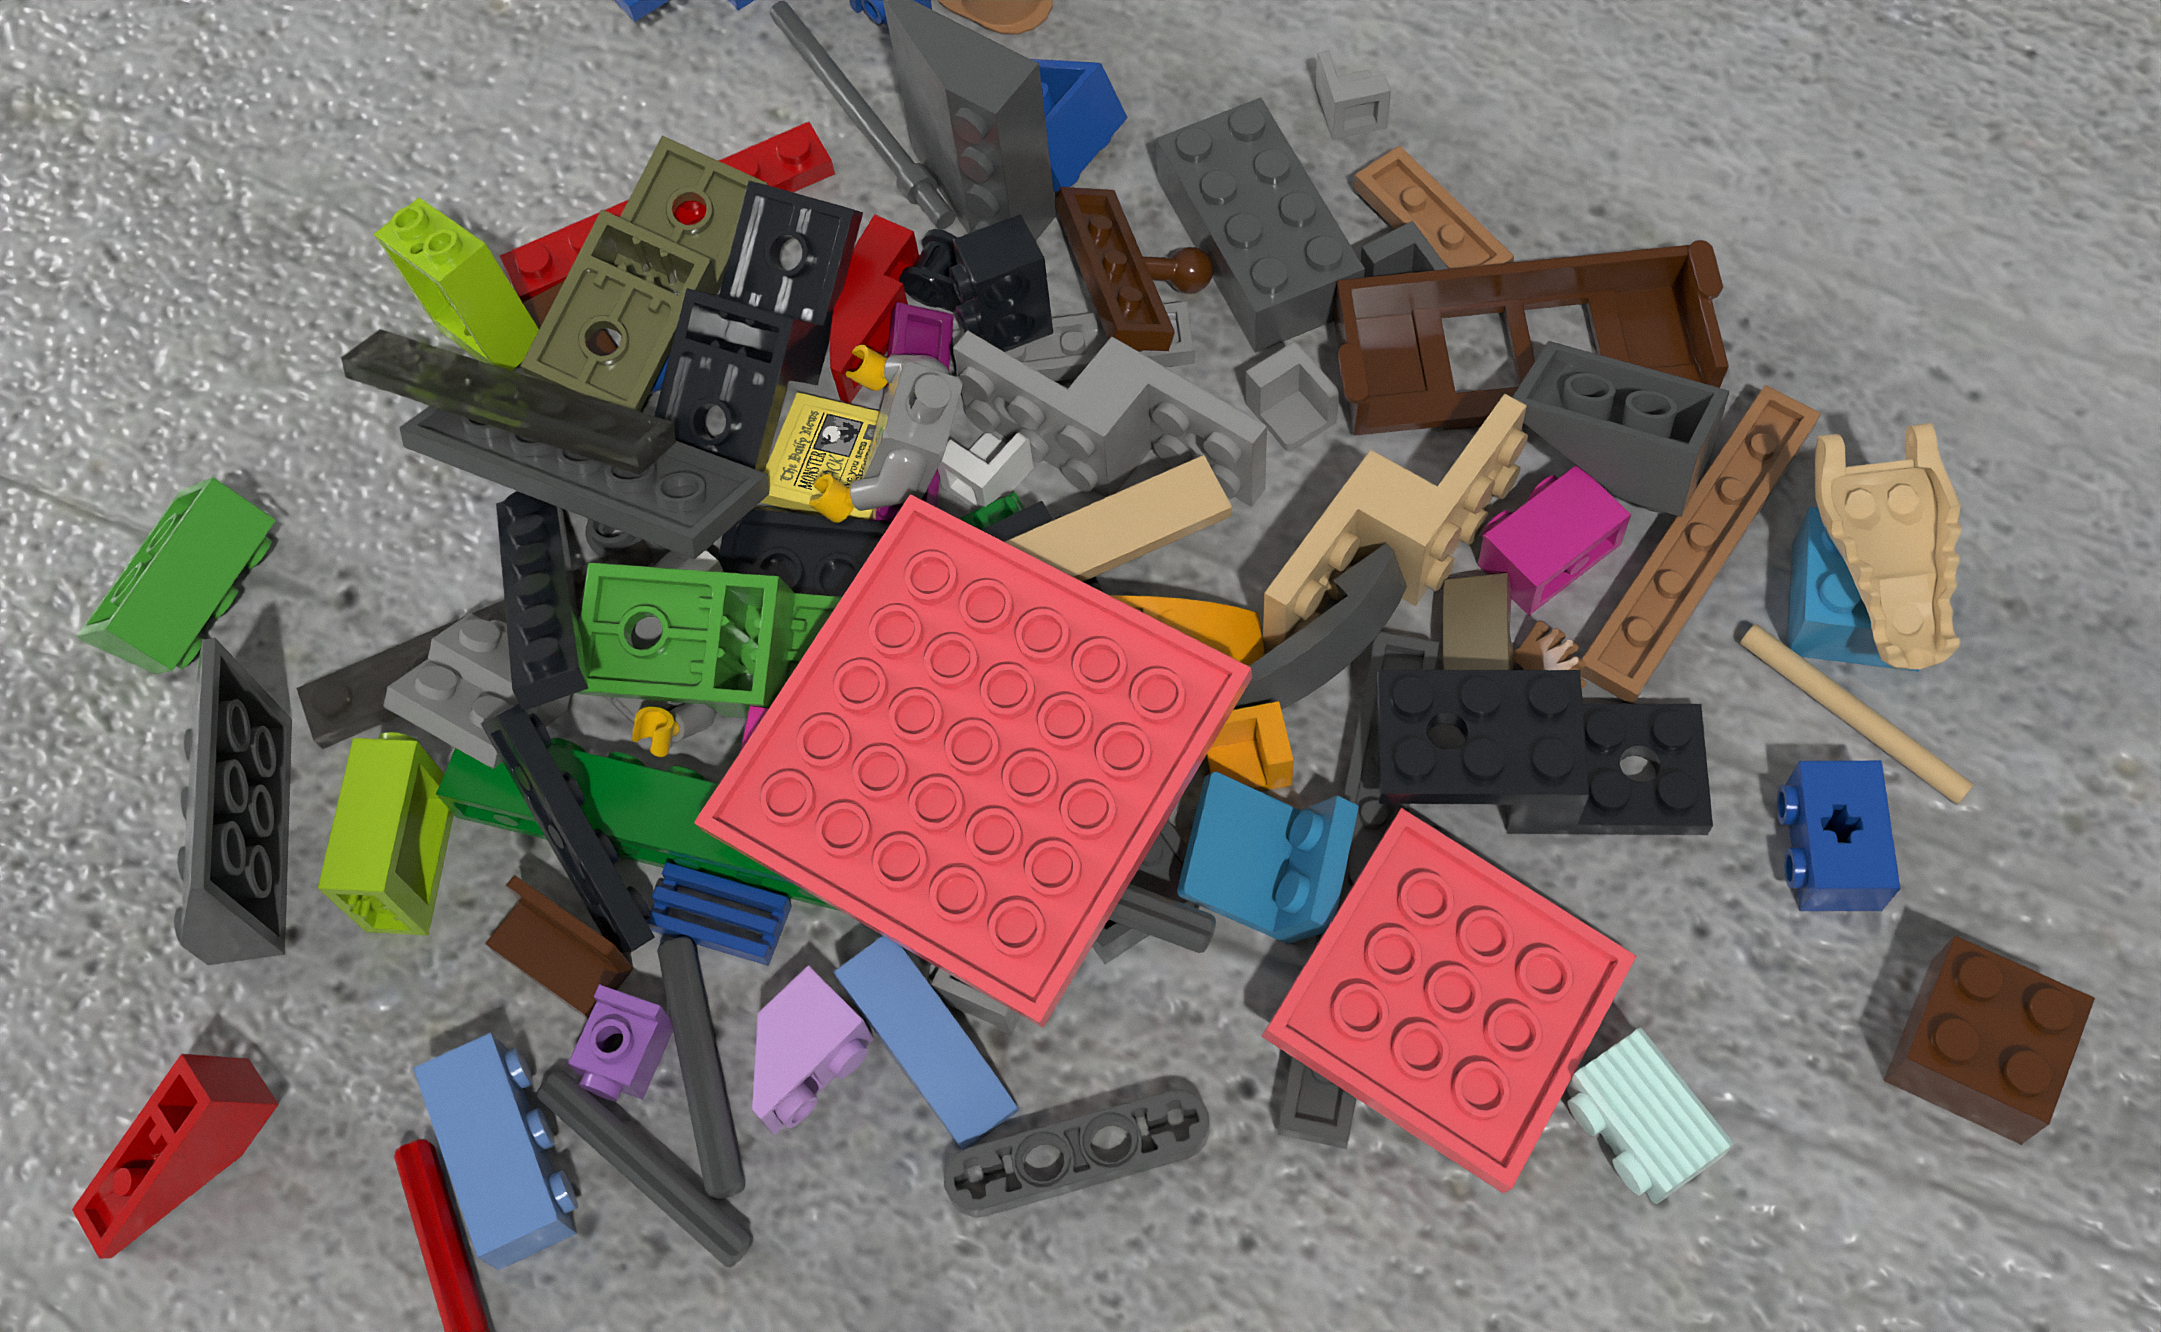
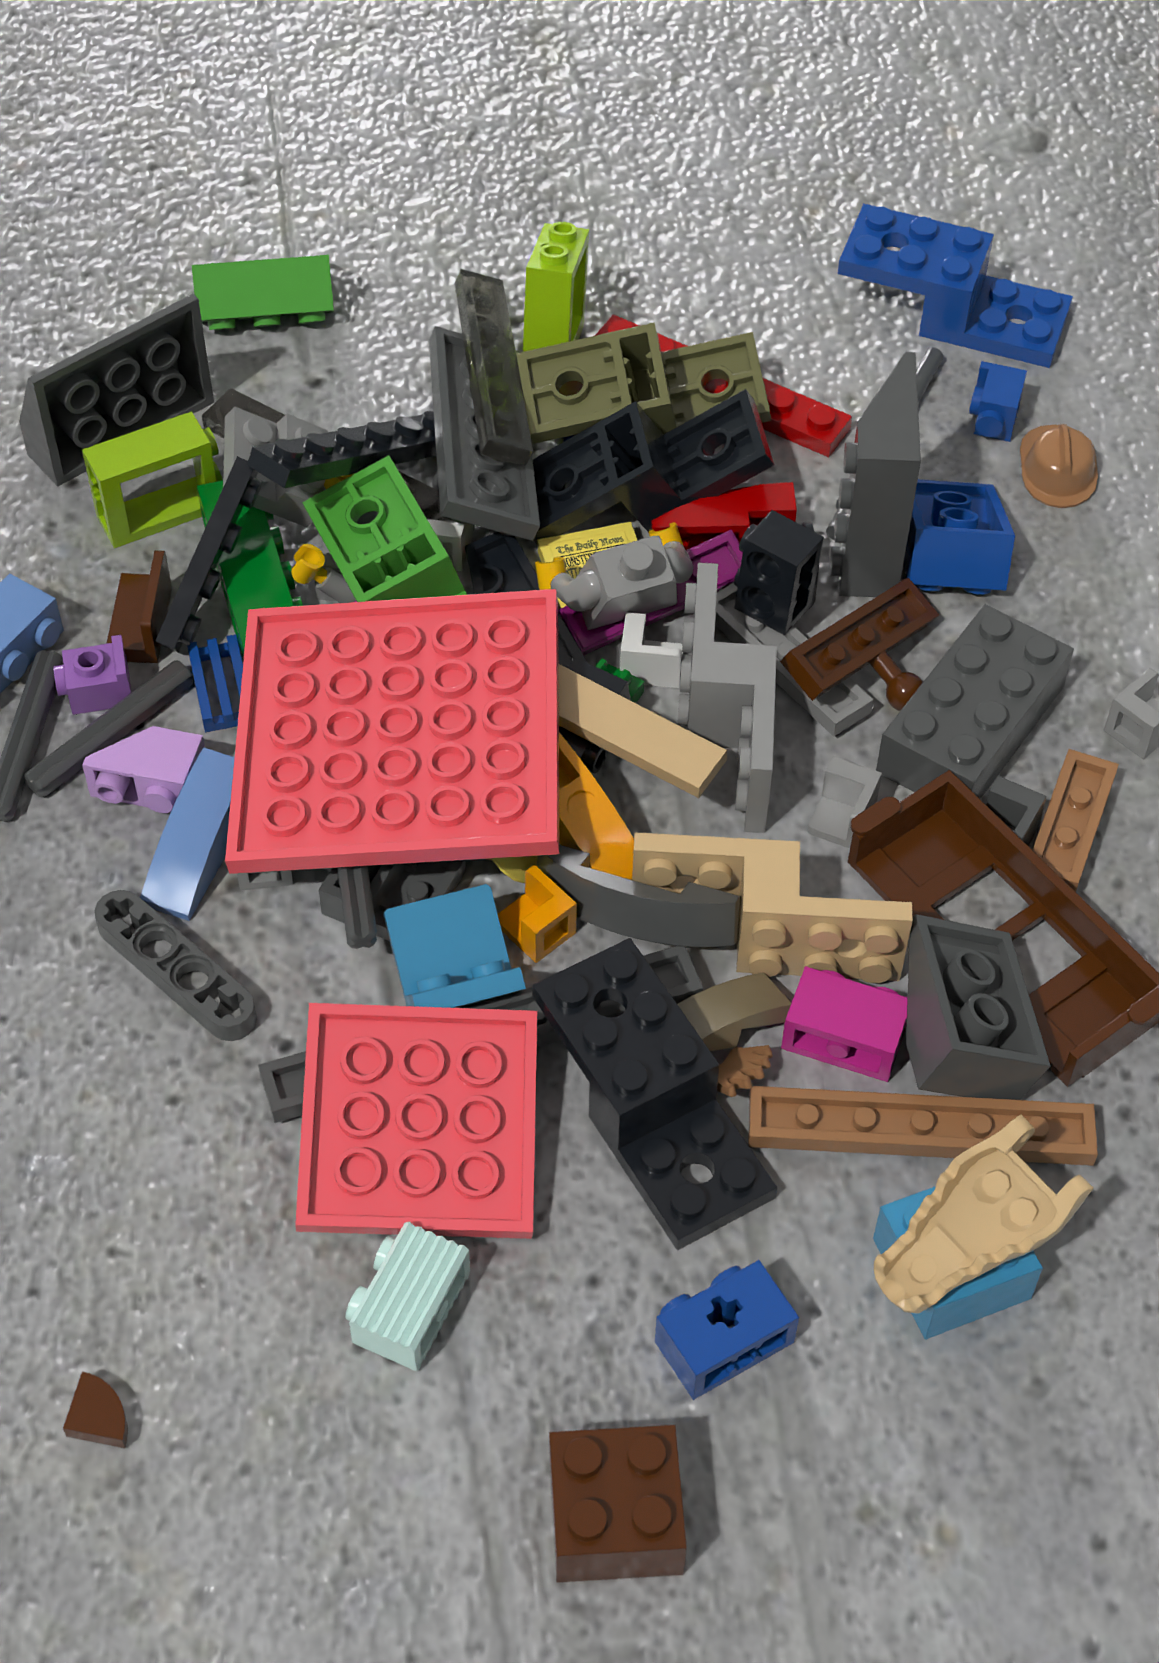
camera: 50 degrees right, 10 degrees down
(1857, 714) = (849, 1307): tan bar -> none

